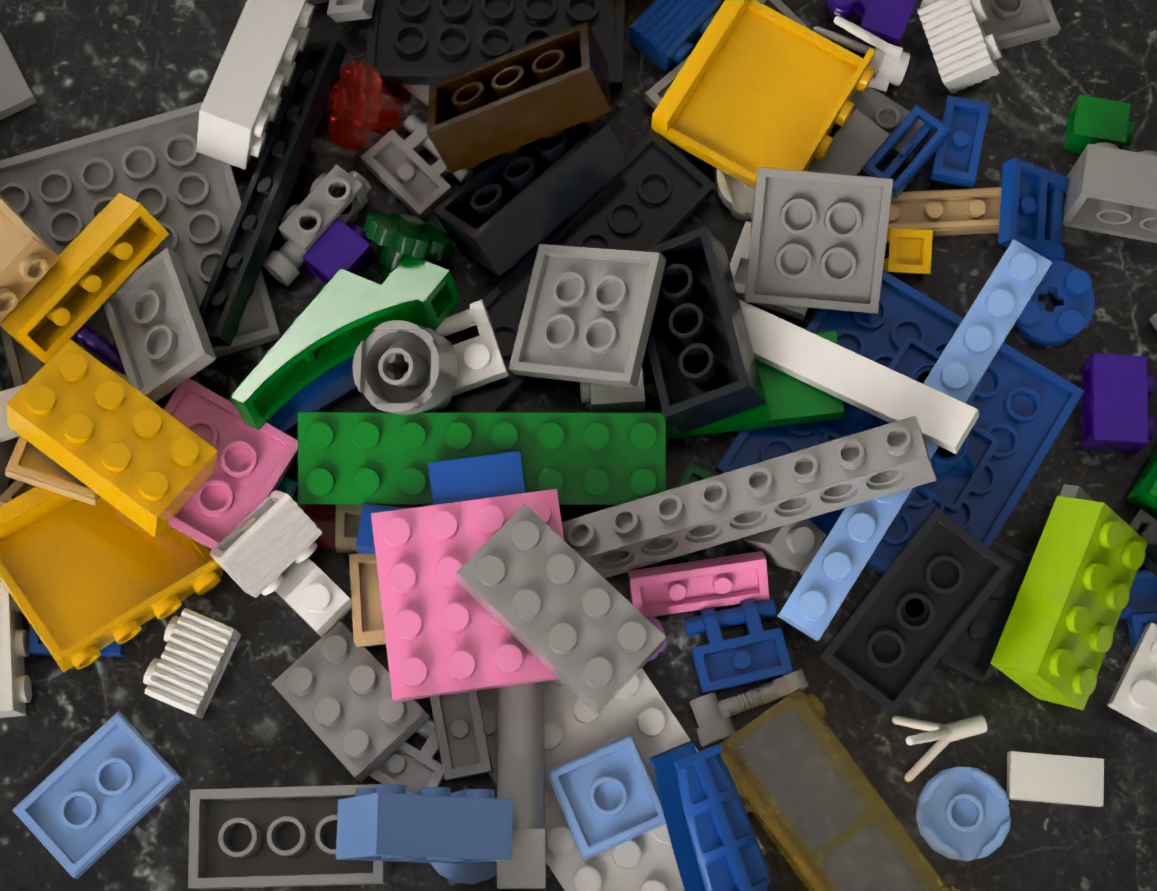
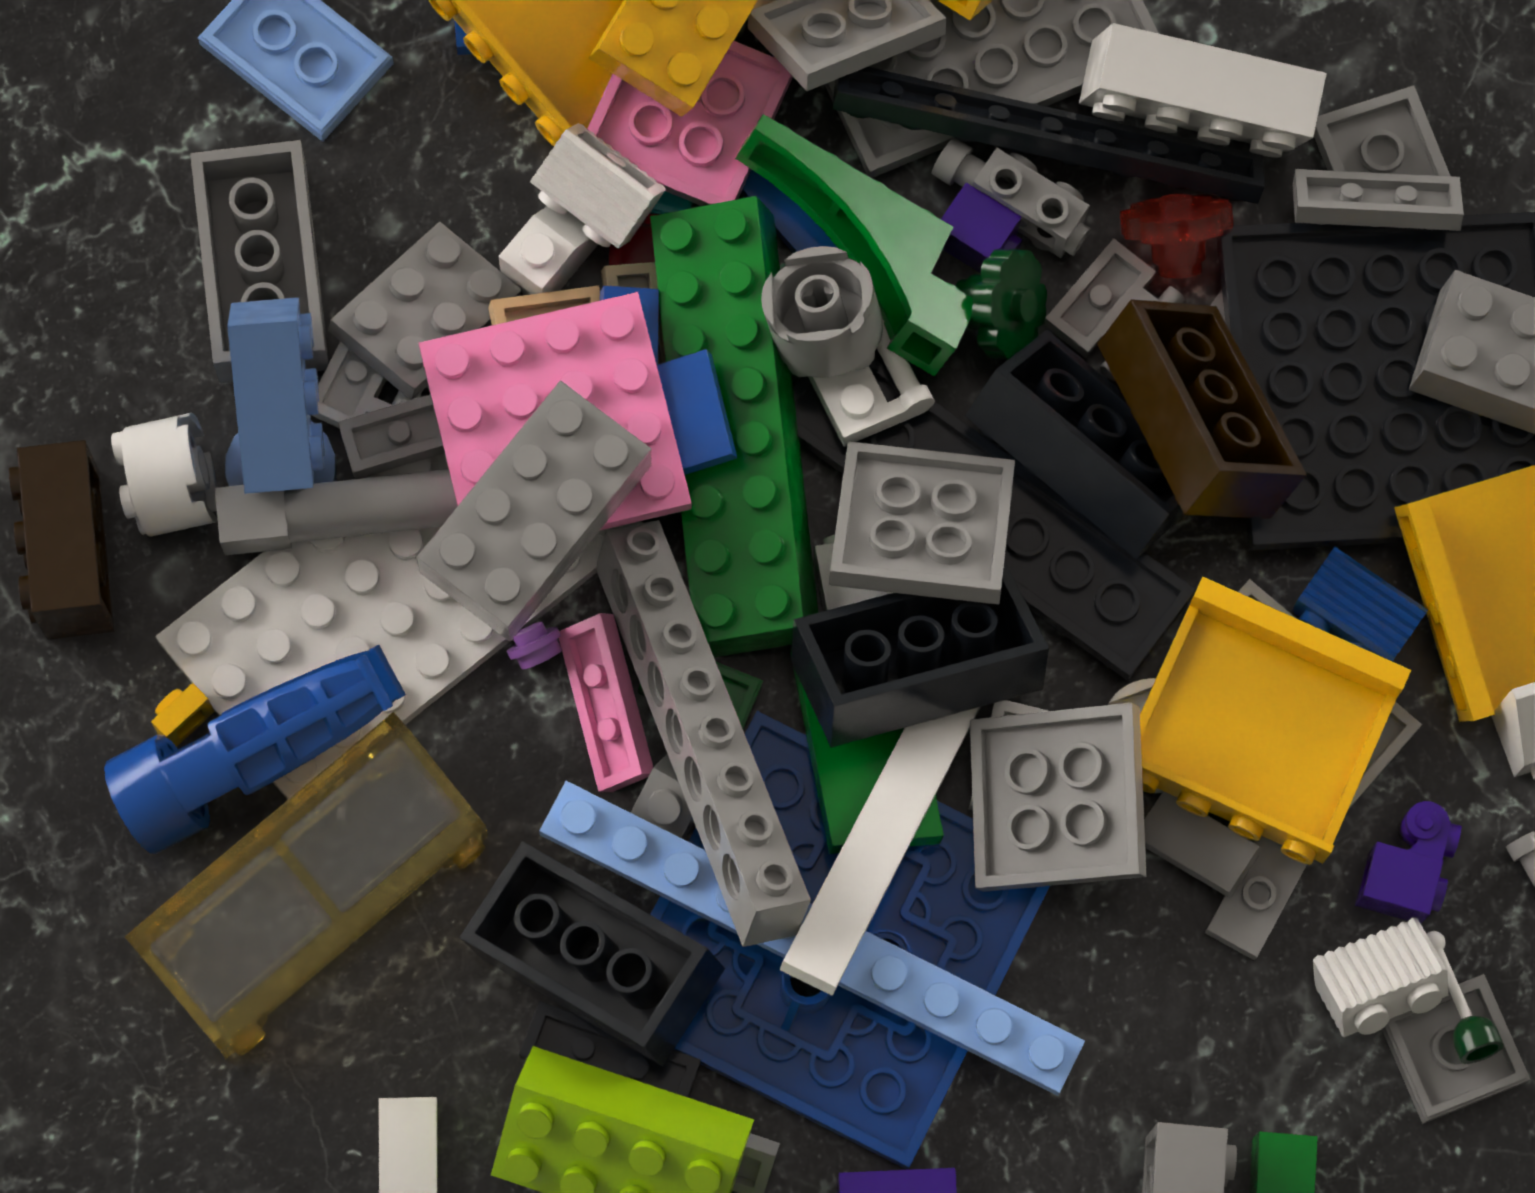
camera: 80 degrees right, 0 degrees up
(191, 662) = (454, 128): white brick -> none
(607, 796) = (336, 608): light blue tile -> none
(715, 715) = (448, 736): light grey brick -> none
(740, 659) = (518, 760): blue plate -> none
(888, 58) = (1337, 885): white plant -> none
(908, 251) = (1075, 932): yellow plate -> none
(919, 161) = (1238, 960): blue tile -> none
(942, 732) = (452, 1012): white plant -> none
(948, 211) = (1139, 979): tan tile -> none
(960, 153) = (1239, 992): blue plate -> none
(963, 813) = (357, 1047): light blue tile -> none
(1032, 208) = (1146, 1074): blue plate -> none
(1066, 321) = (1006, 1144): blue plate -> none

